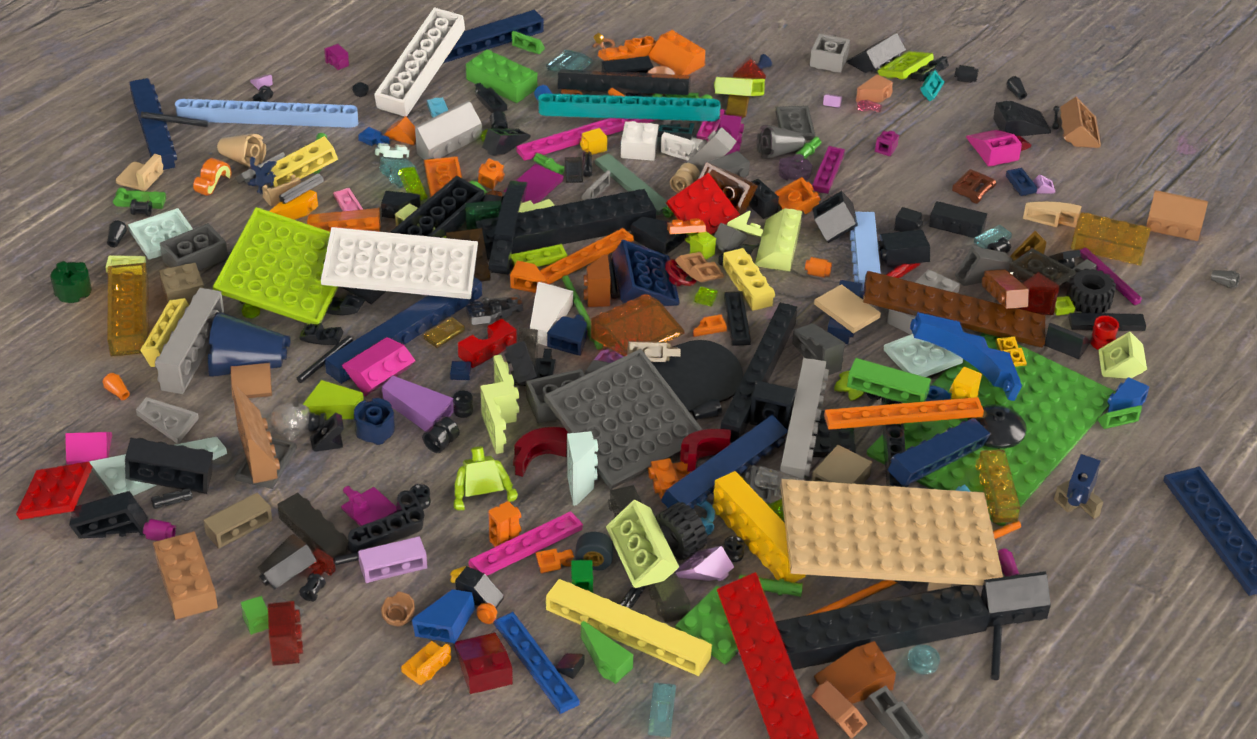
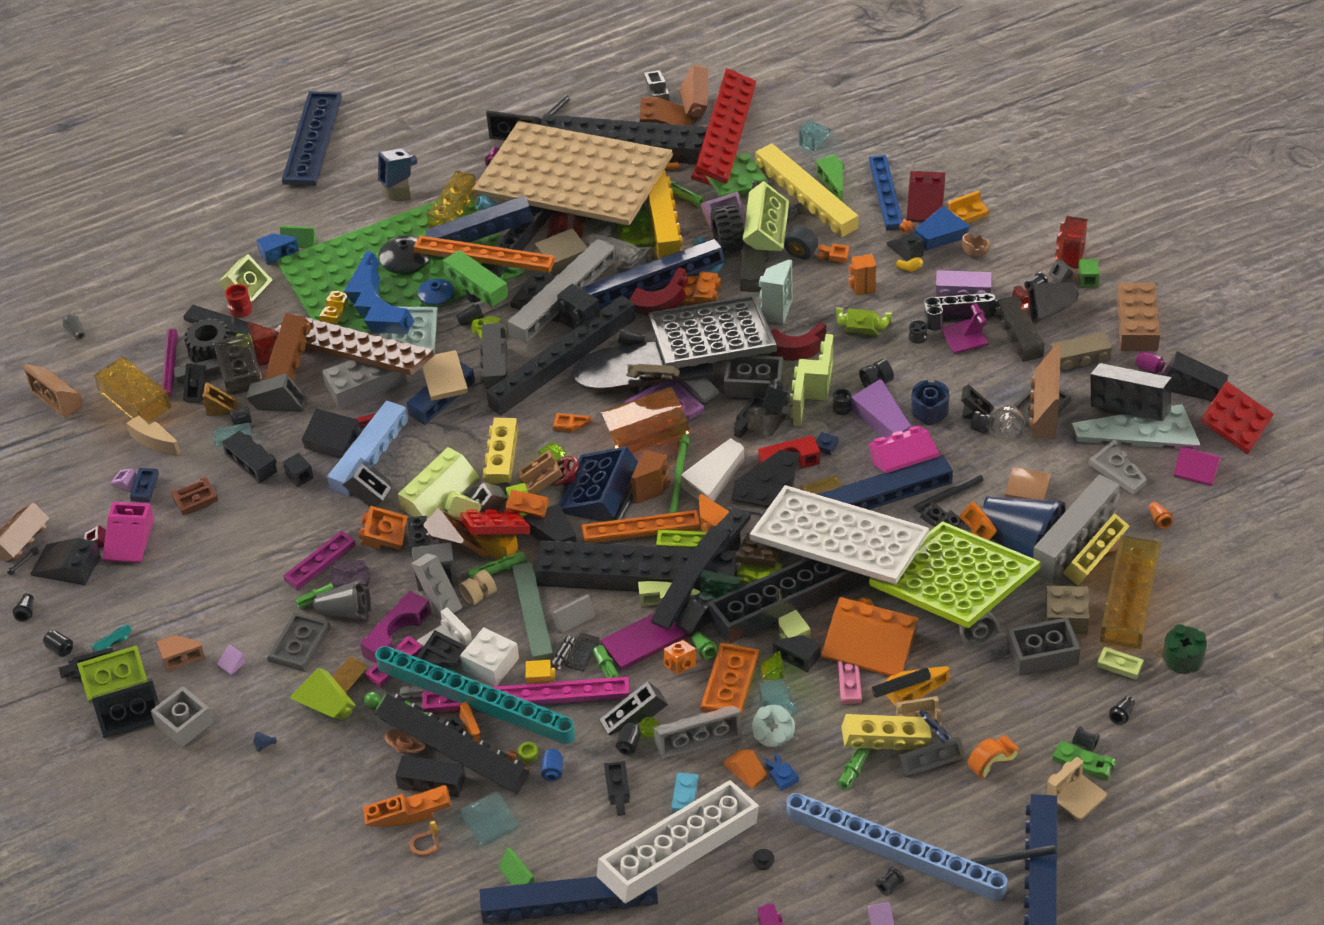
camera: 150 degrees left, 5 degrees up
(157, 229) = (1069, 694): light aqua plate -> none
(243, 147) = (947, 784): tan cone -> none
(283, 328) = (978, 521): none -> orange slope
(333, 398) = (959, 436): lime slope -> none
(502, 75) = (584, 813): bright green brick -> none
(526, 544) = (840, 266): dark pink plate -> none
(568, 335) = (704, 440): dark blue torso -> none
(570, 664) = (861, 180): black slope -> none
(582, 574) = (822, 229): green brick -> none
(678, 53) = (353, 782): orange slope -> none
(734, 548) = (689, 222): black wheel -> none
(737, 318) = (539, 423): black tile -> none
(749, 69) = (296, 720): clear red slope -> none
(818, 267) = (426, 445): orange brick -> none
(866, 105) = (207, 639): clear pink arm -> none
(889, 138) = (230, 575): magenta brick -> none
(923, 659) = (609, 112): clear light blue plate -> none
(966, 384) = (412, 268): yellow brick -> none
(1066, 341) = (270, 308): black slope -> none

